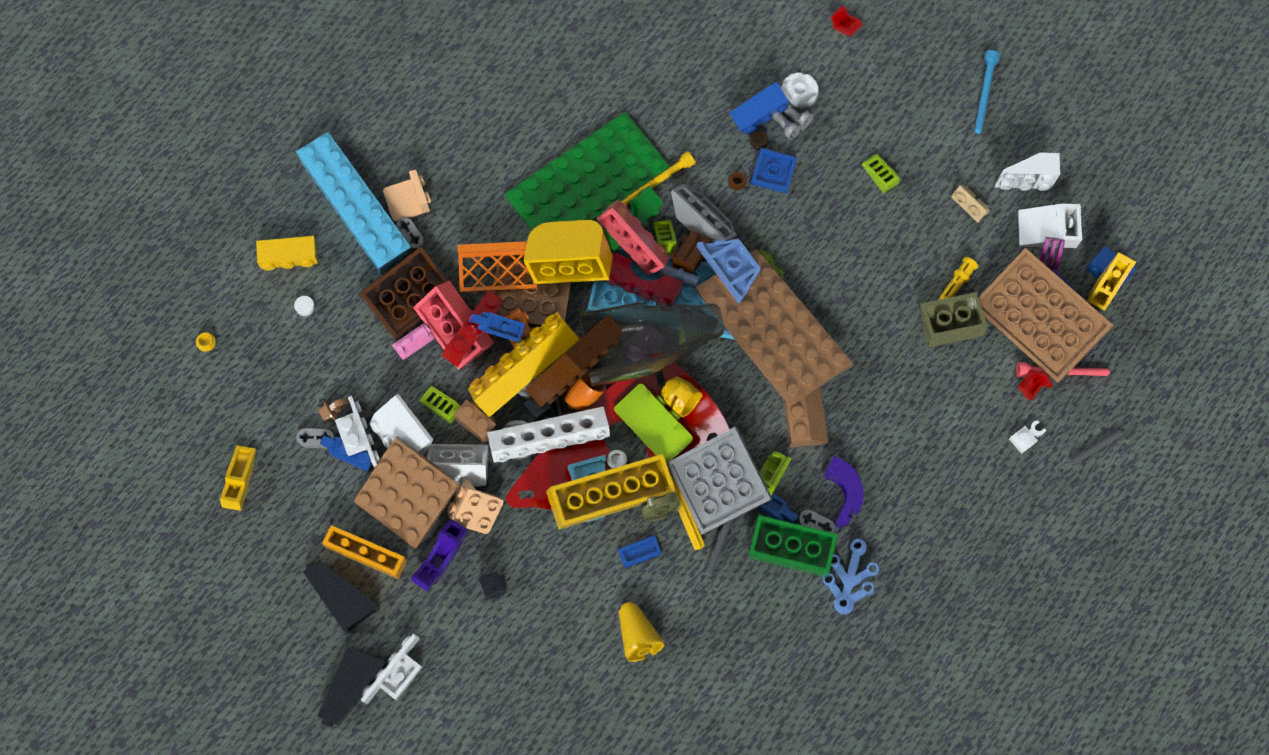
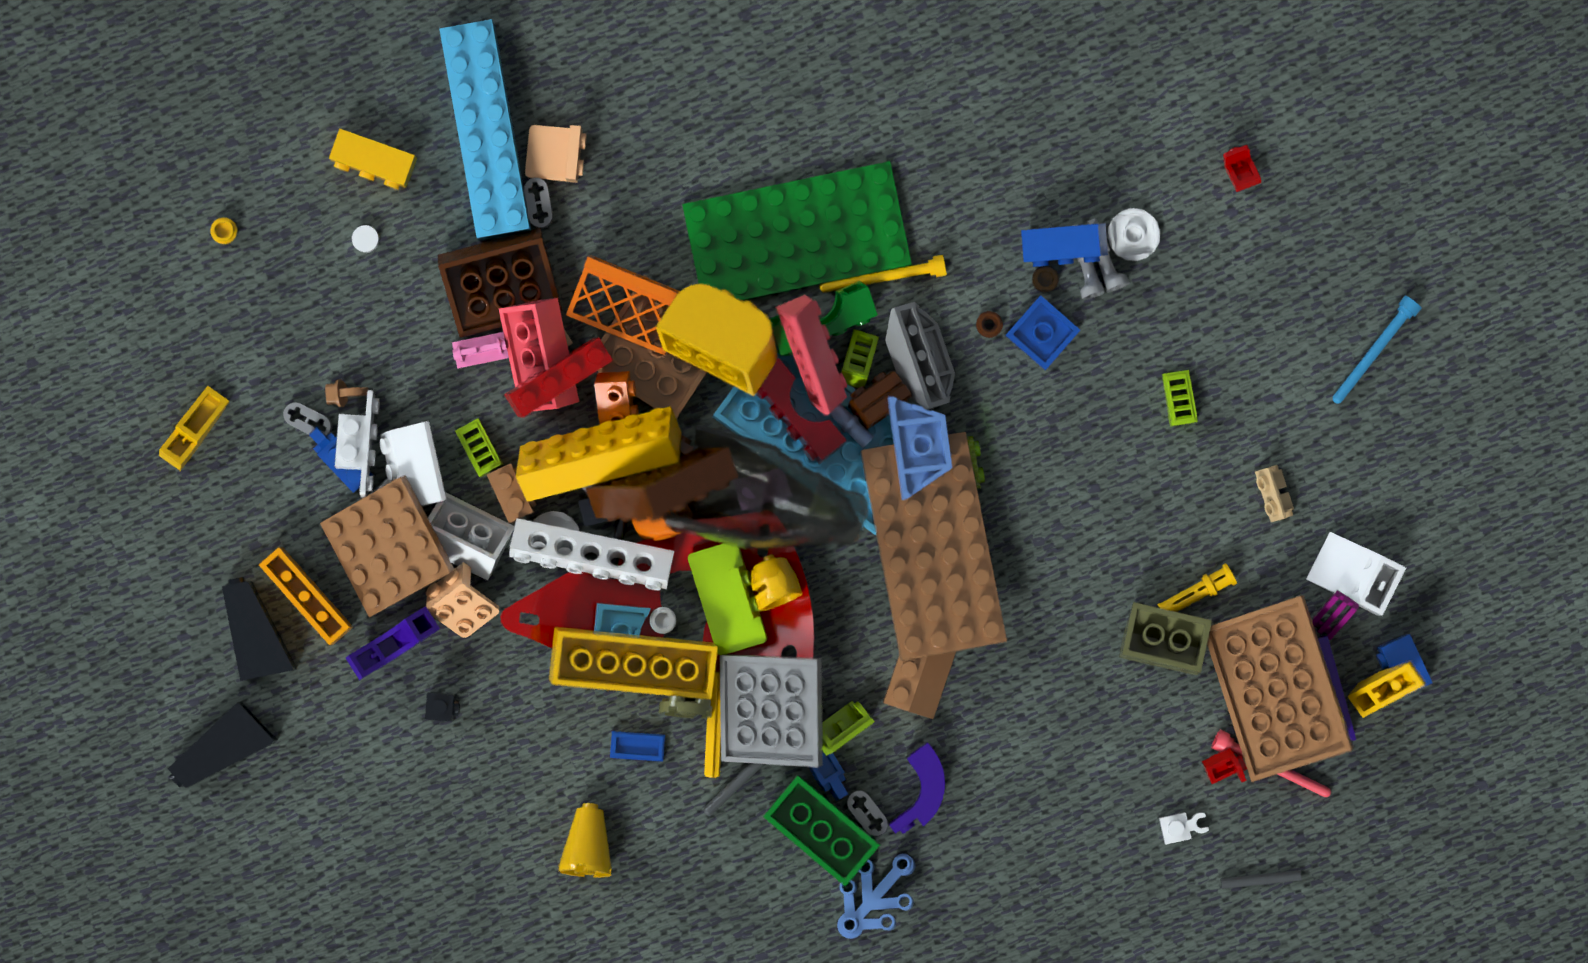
camera: 30 degrees right, 15 degrees up
(397, 674) = (283, 761): white bracket -> none
(498, 325) = (588, 394): blue hinge -> none
(1034, 172) = (1380, 496): white slope -> none

